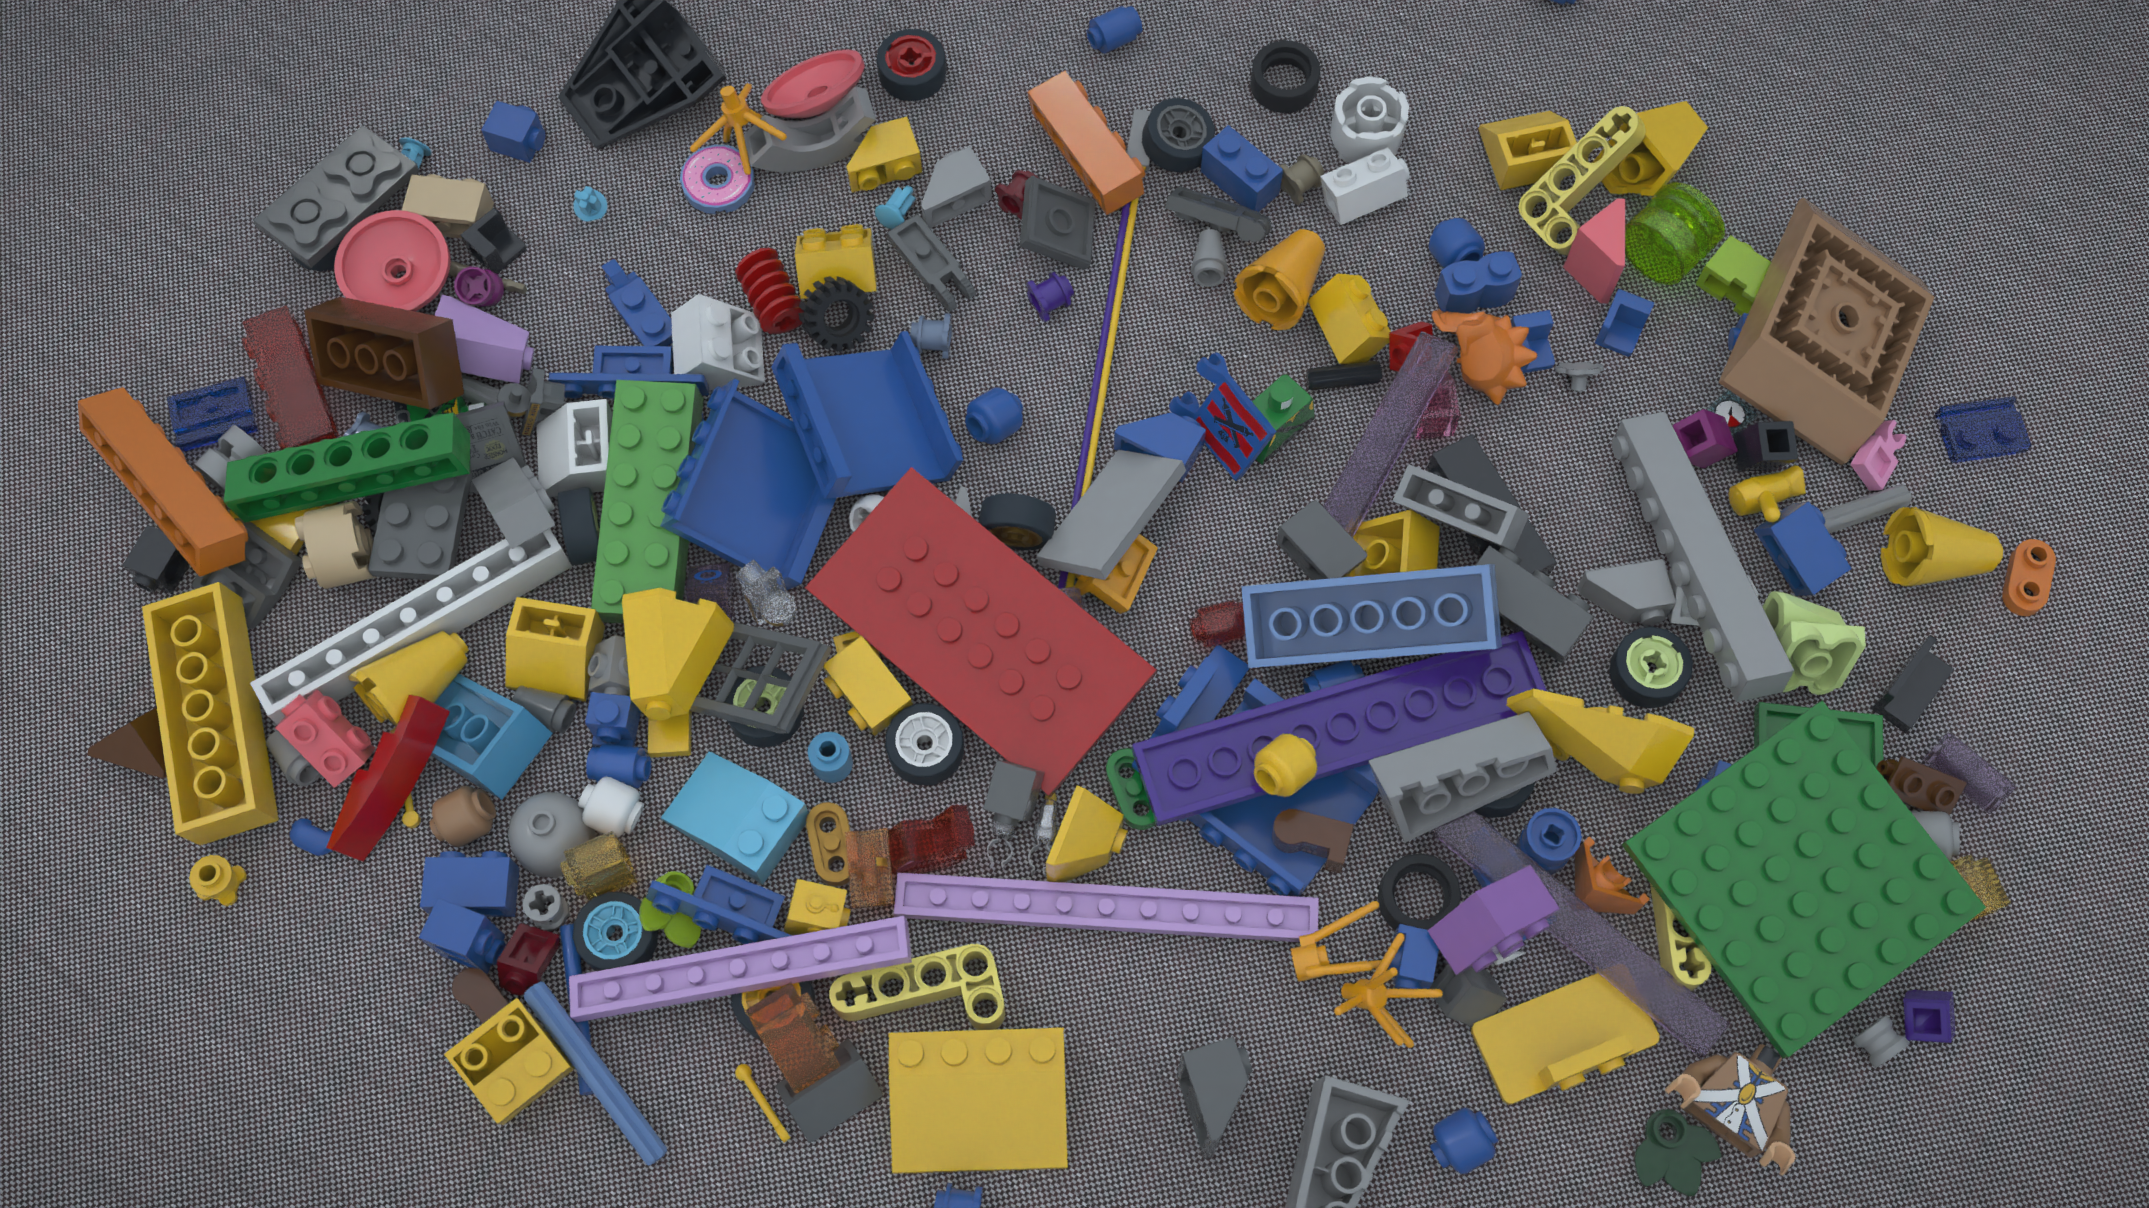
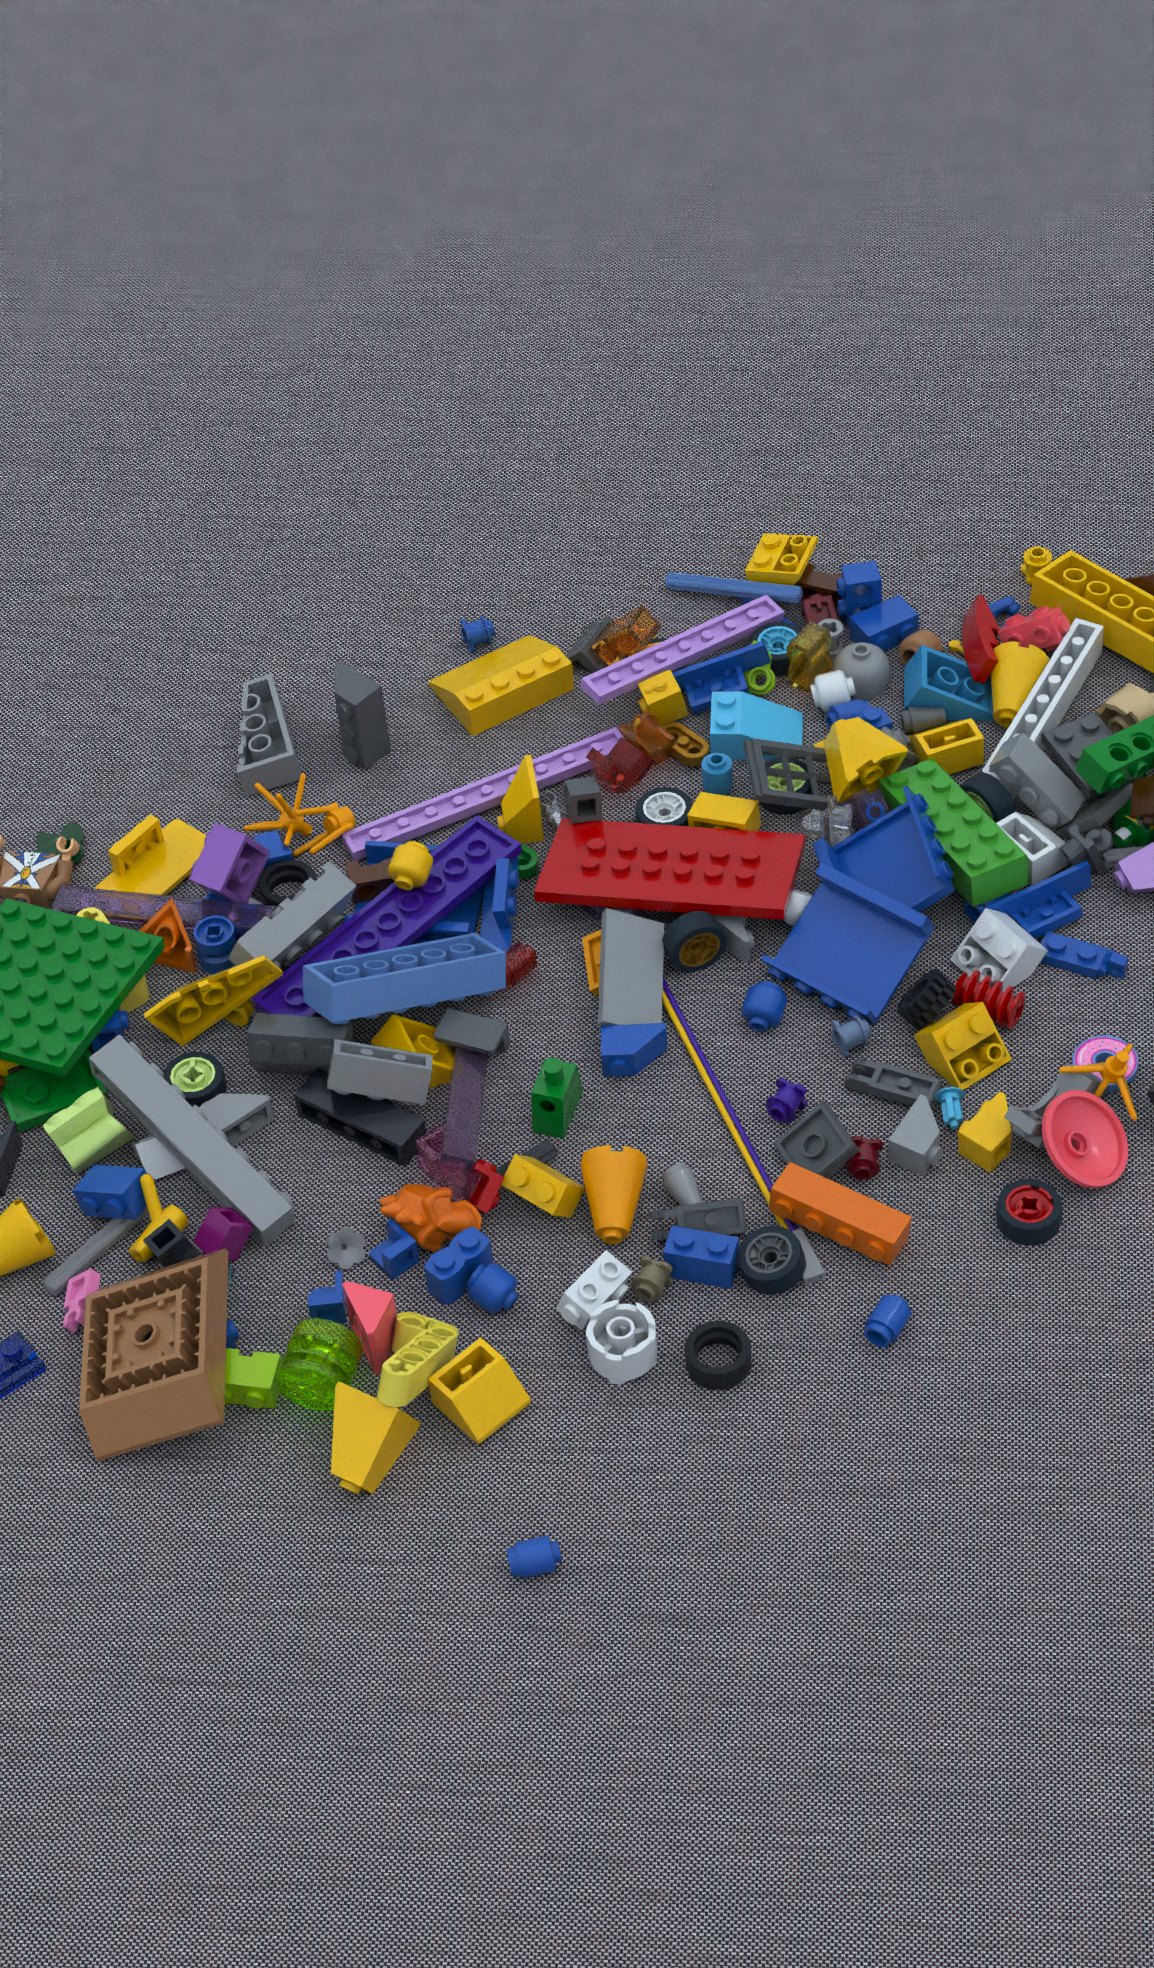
camera: 155 degrees right, 20 degrees down
(917, 992) = (559, 720): light yellow beam -> none
(1232, 422) = (599, 1071): blue flag -> none
(1464, 1140) = (193, 787): blue head -> none

